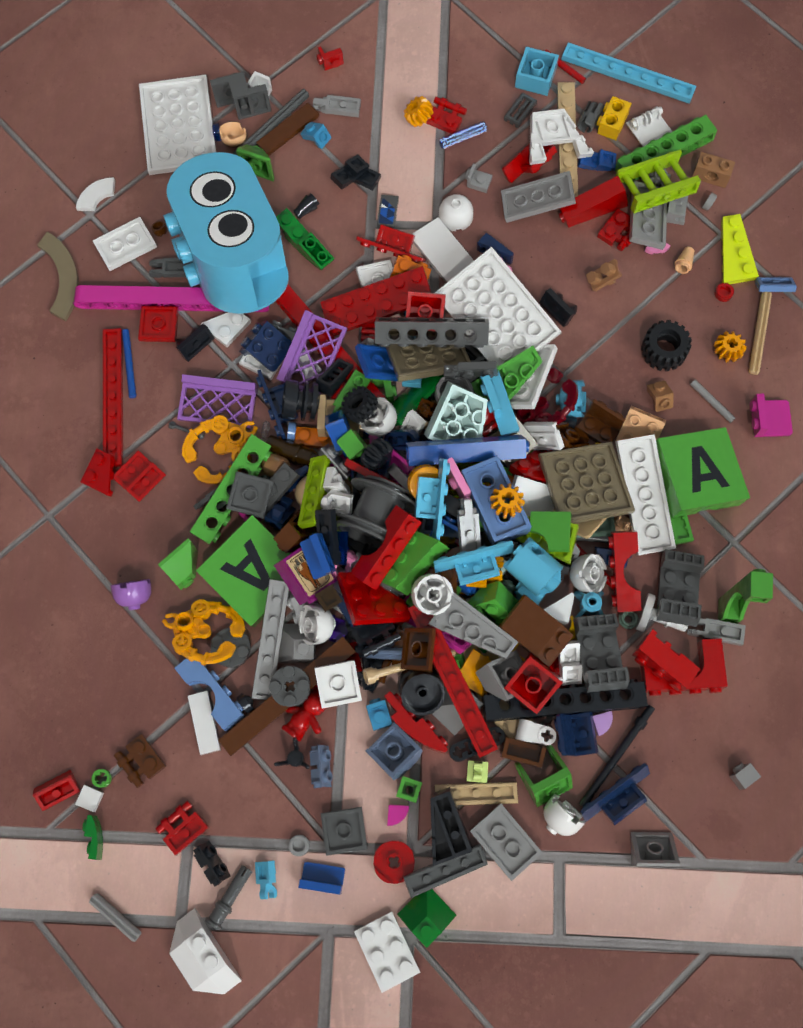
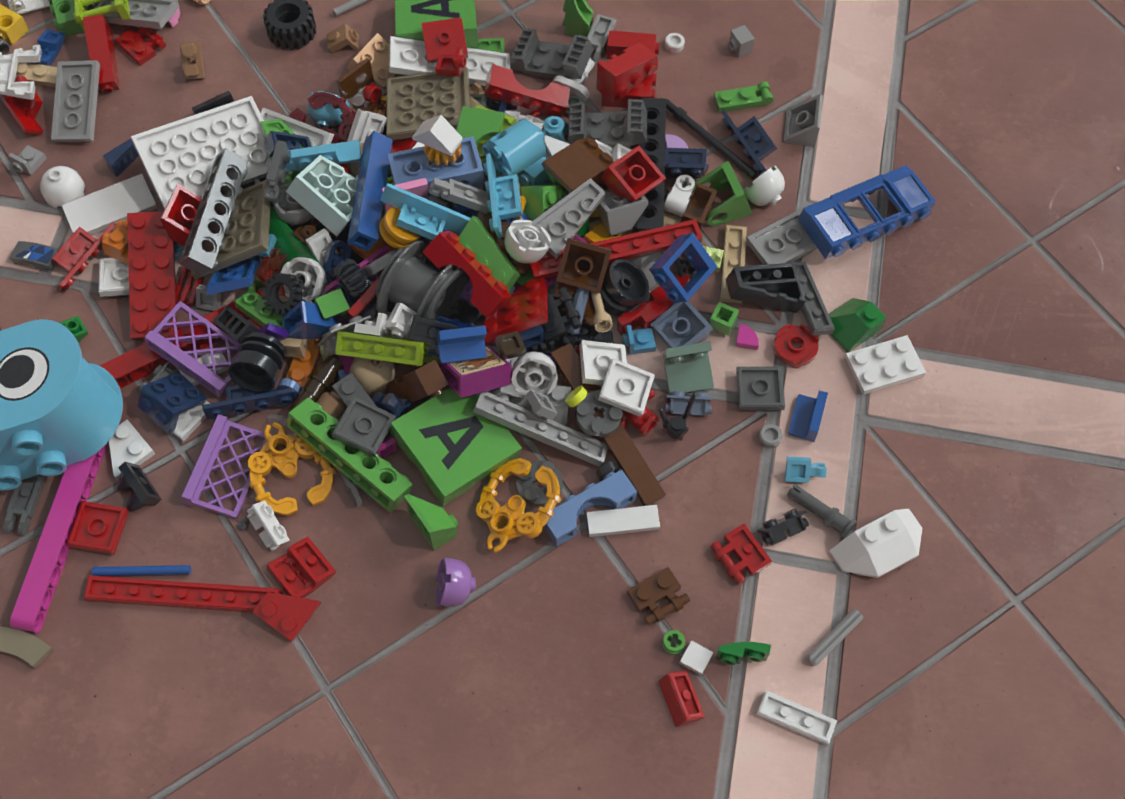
camera: 85 degrees left, 10 degrees down
(45, 888) = (796, 718): none -> white tile
(170, 443) = (263, 516): none -> white hinge
(287, 634) = (538, 404): none -> light grey bracket
(300, 664) = (576, 396): none -> neon yellow tile
(314, 706) = (626, 387): none -> white tile
(323, 405) = (275, 331): none -> dark purple tile
(352, 761) = (688, 367): none -> sand green bracket
(389, 390) = (270, 265): none -> clear red plate
(448, 730) = (697, 257): none -> blue window
(508, 493) = (438, 135): none -> white slope
(517, 371) = (273, 136): none -> dark blue slope
(522, 888) = (835, 231): none -> blue window
(596, 433) = (372, 93): none -> red plate
(629, 494) = (451, 65): none -> red bracket
(659, 483) = (443, 38): none -> red plate
(675, 785) = (743, 97): none -> bright green plate
(730, 708) = (674, 42): none -> white tile

